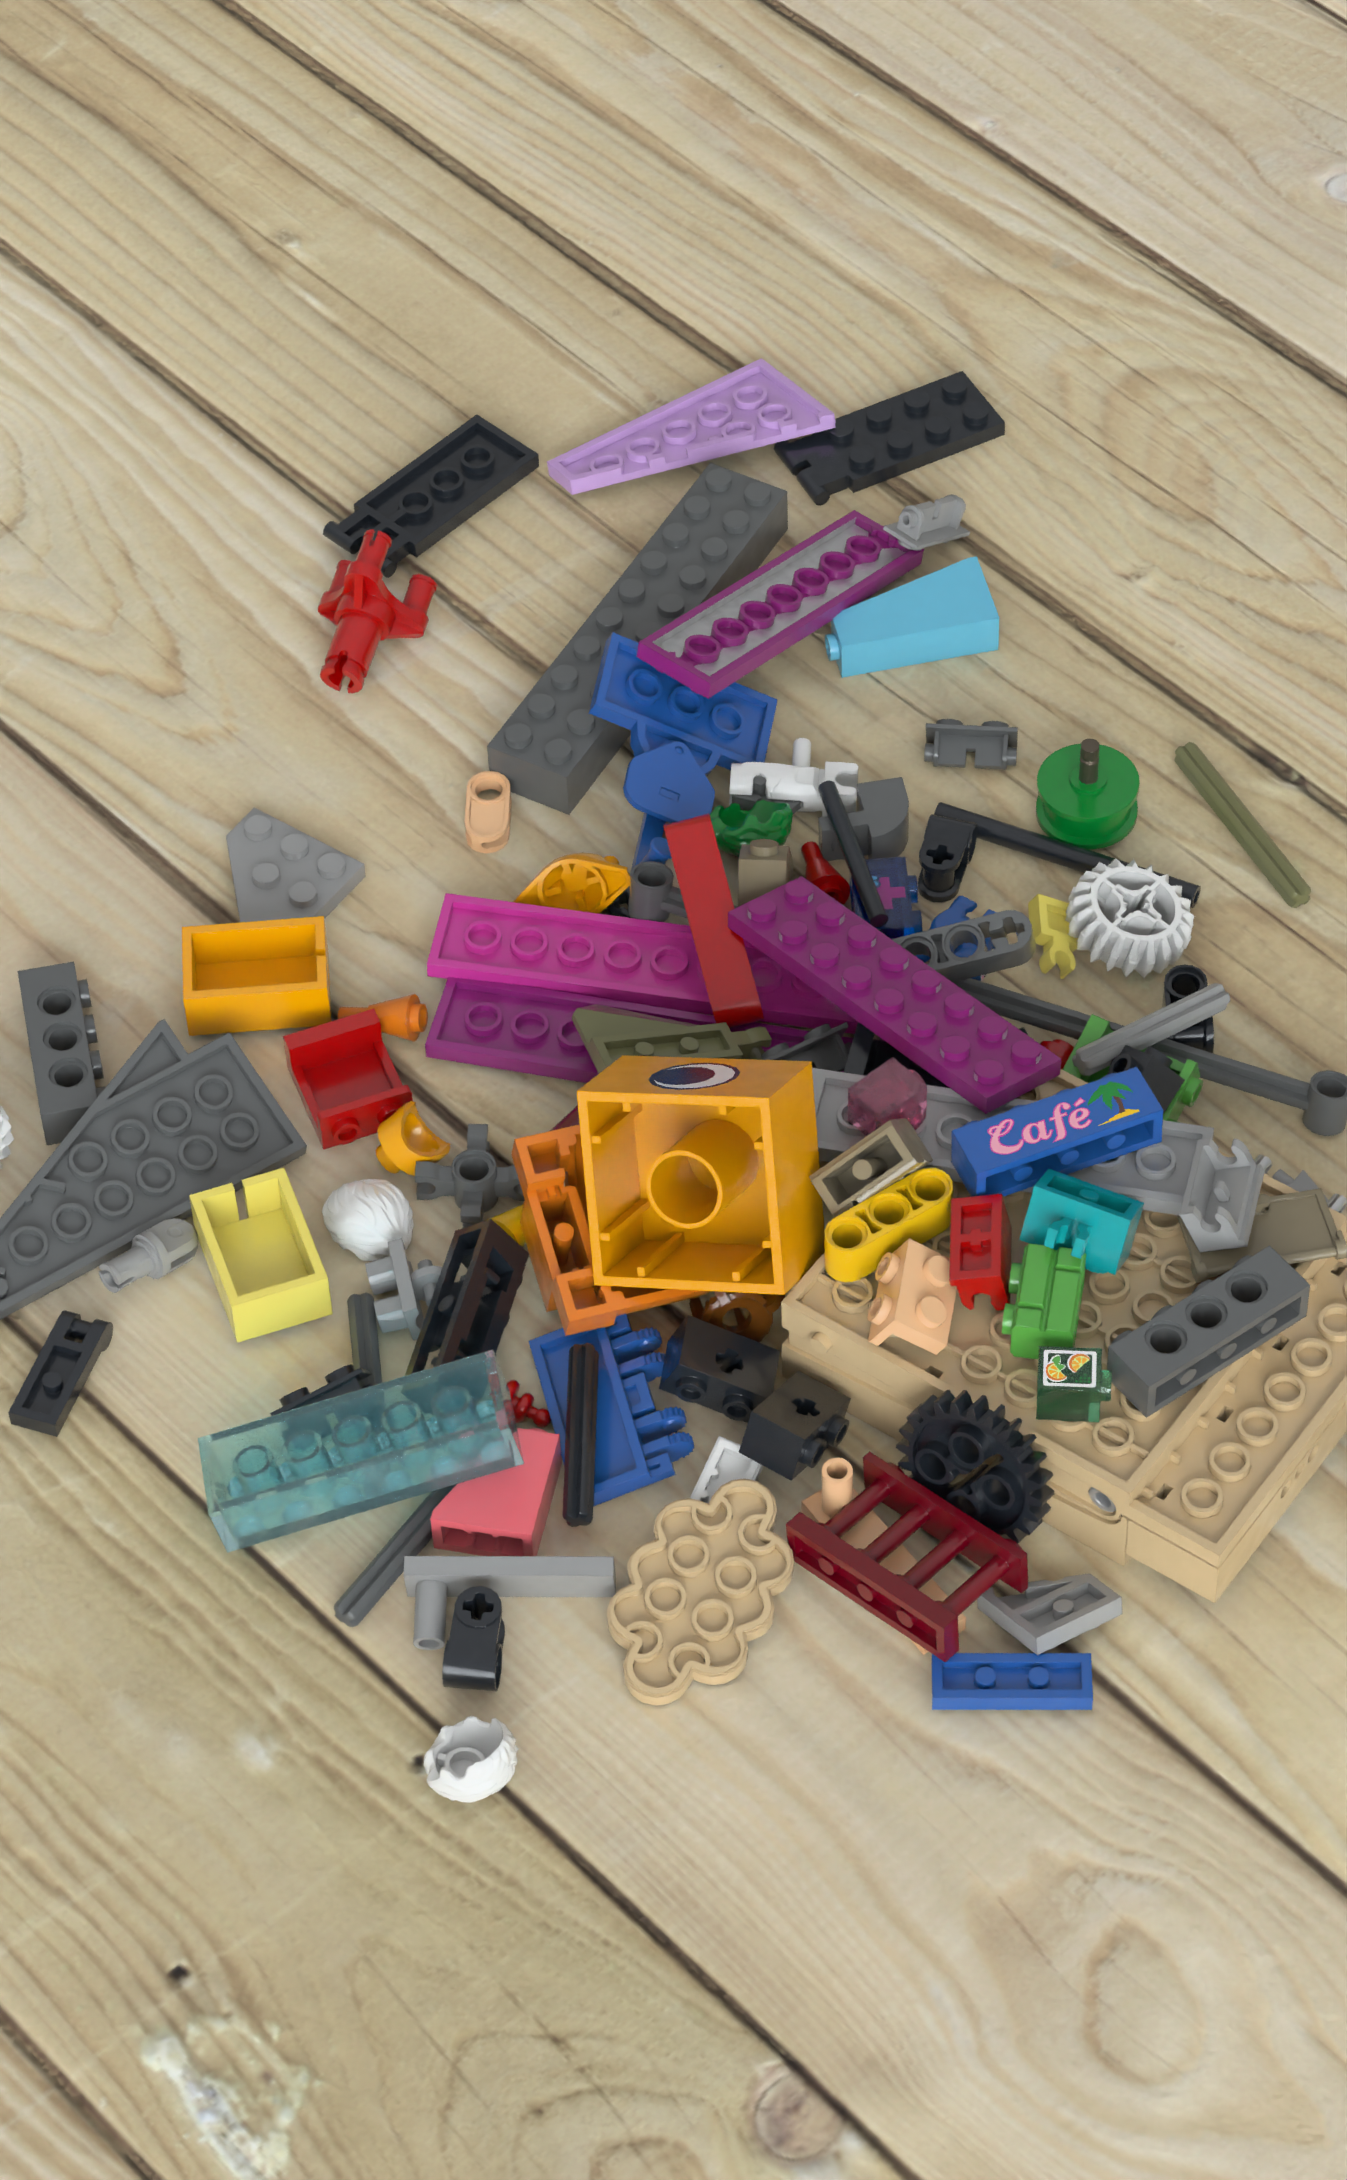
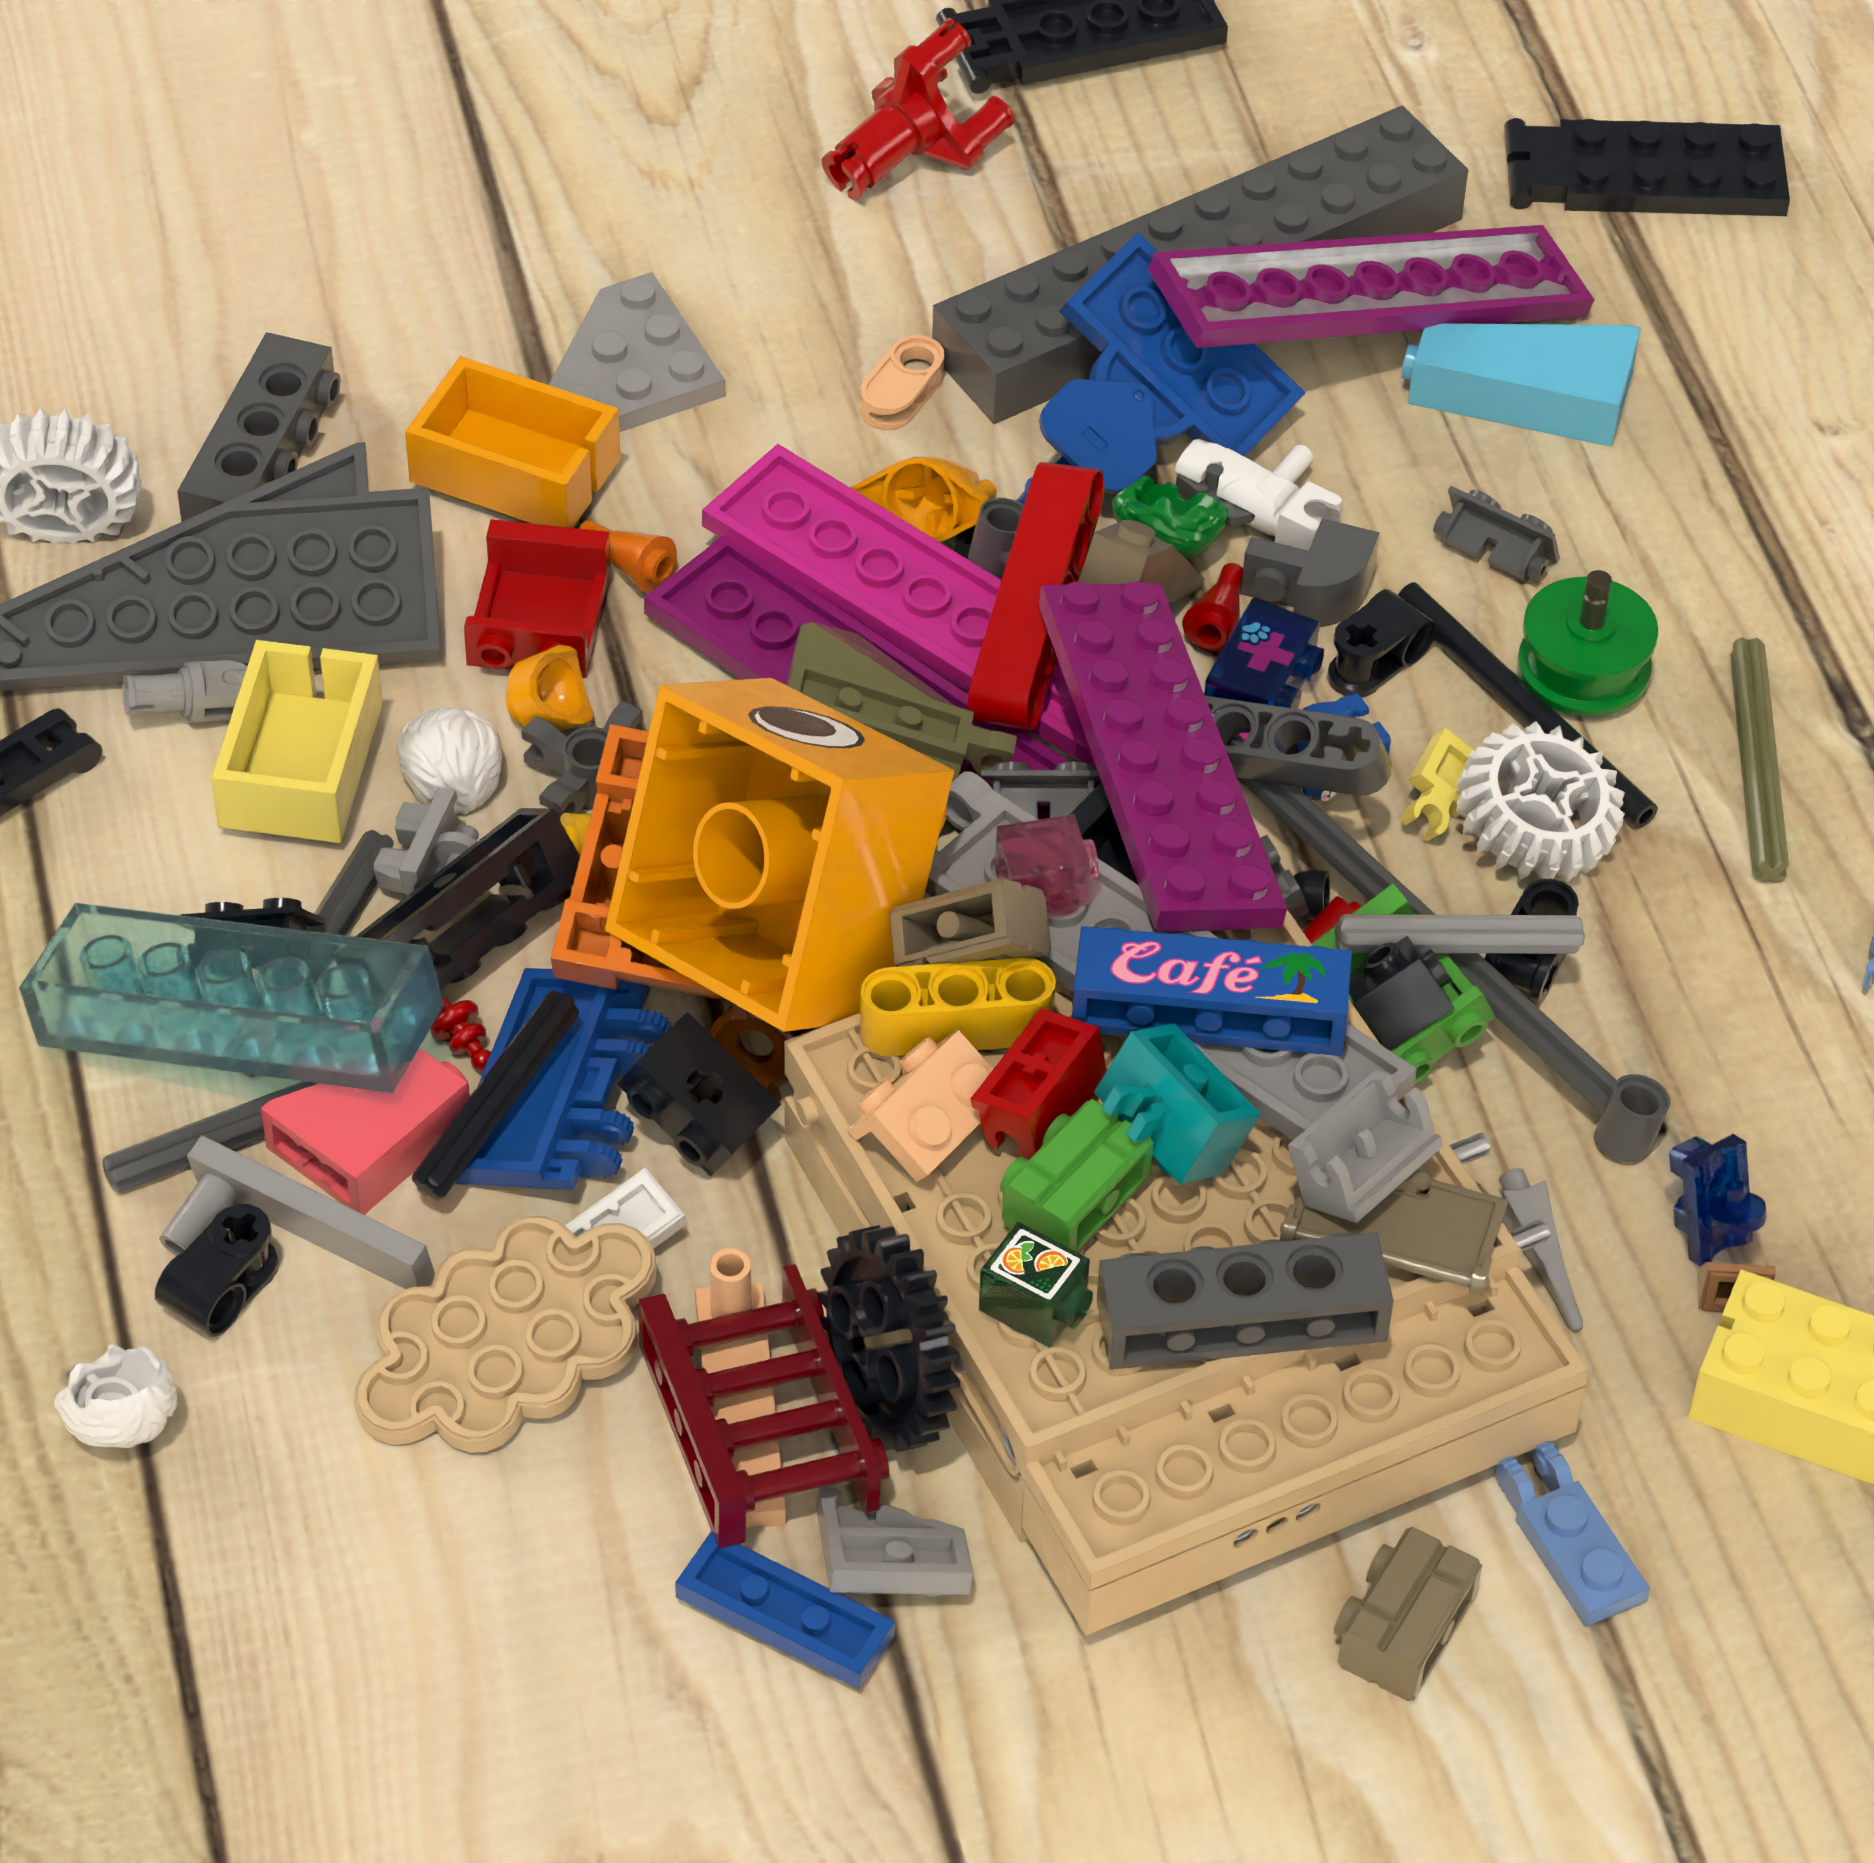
camera: 25 degrees right, 0 degrees up
(714, 421) = (1466, 69): lavender wing -> none
(795, 1426) = (736, 1195): black brick -> none
(853, 854) = (1257, 592): black bar -> none
(929, 523) = (1599, 271): light grey hinge -> none

